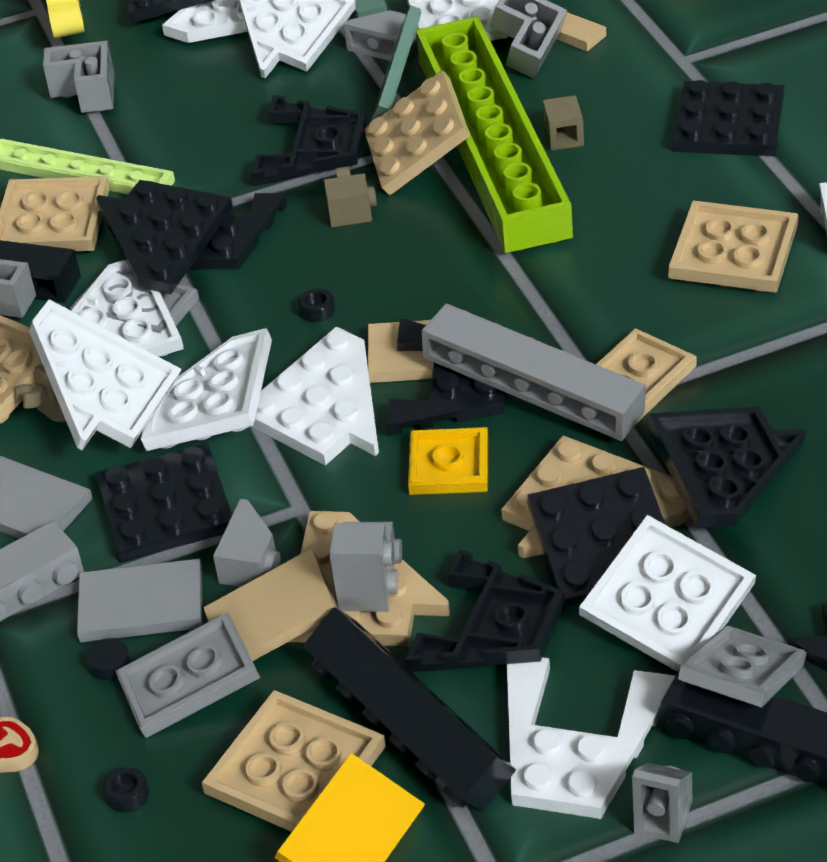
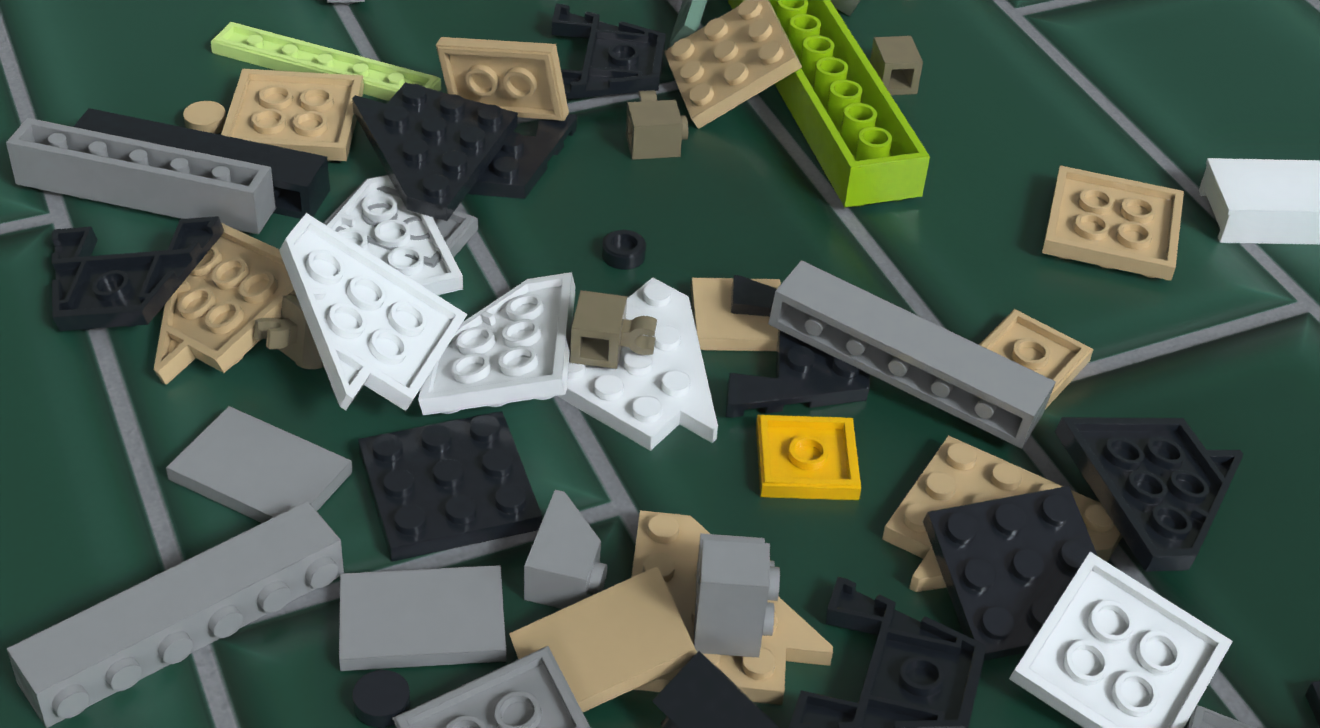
camera: 10 degrees left, 0 degrees up
(220, 167) = (505, 74): none -> tan tile
(286, 372) = (602, 330): none -> dark tan brick
(729, 118) = (1079, 79): black plate -> none

